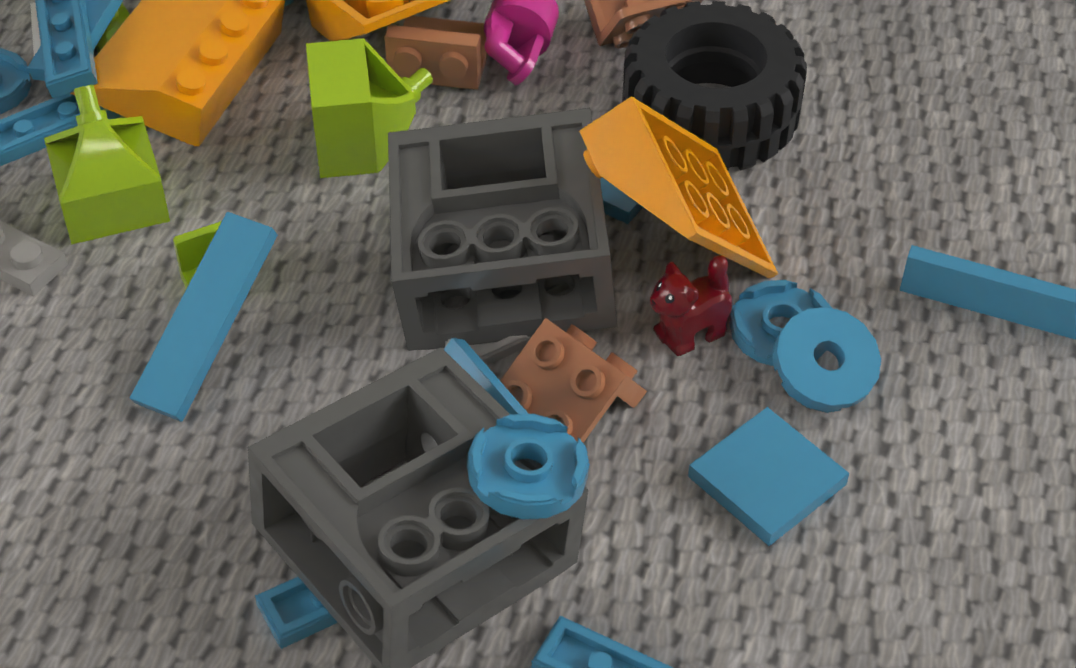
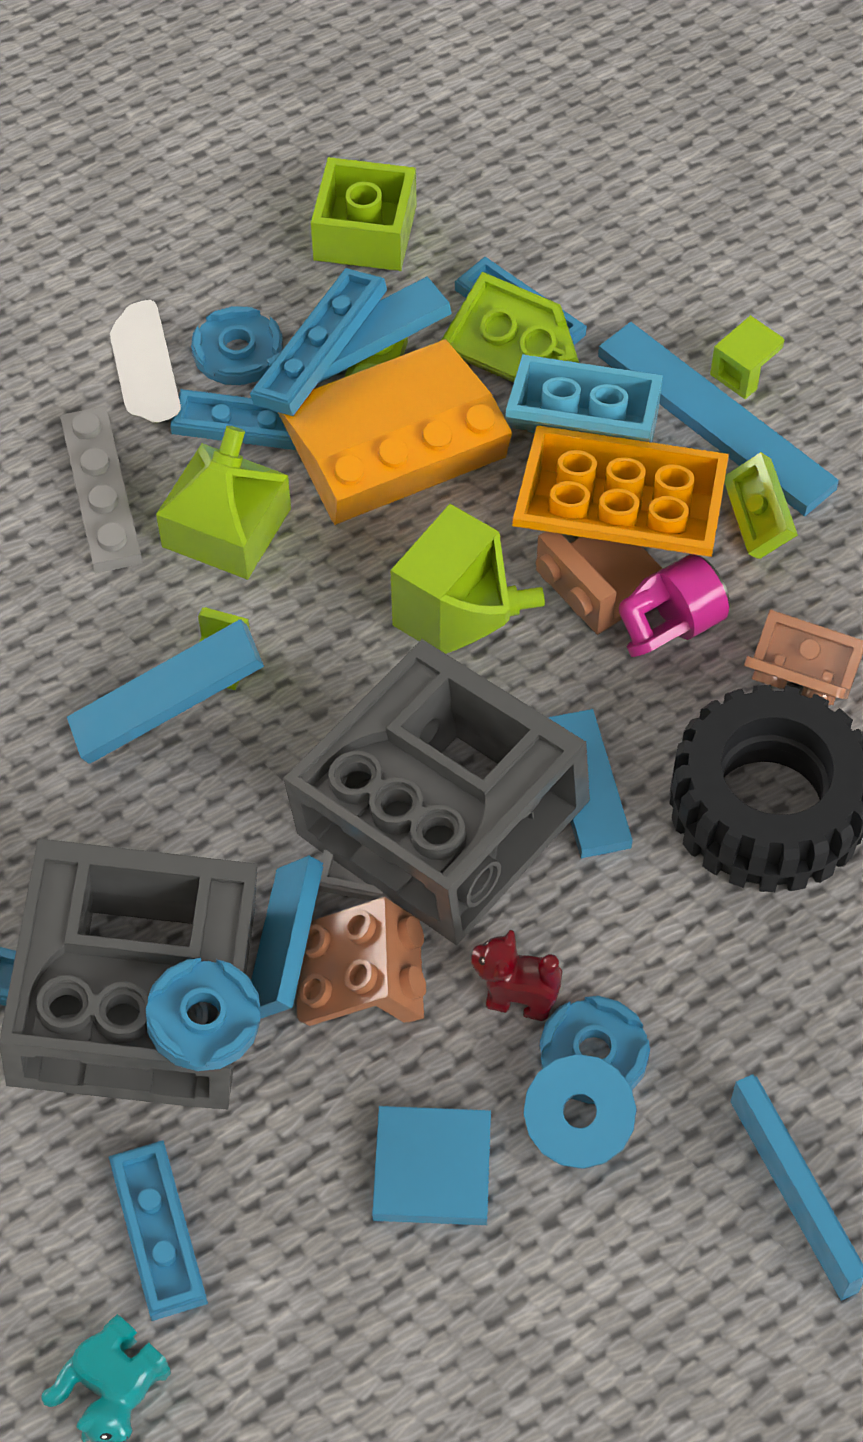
camera: 45 degrees right, 10 degrees up
(675, 180) = (587, 879): light orange slope -> none

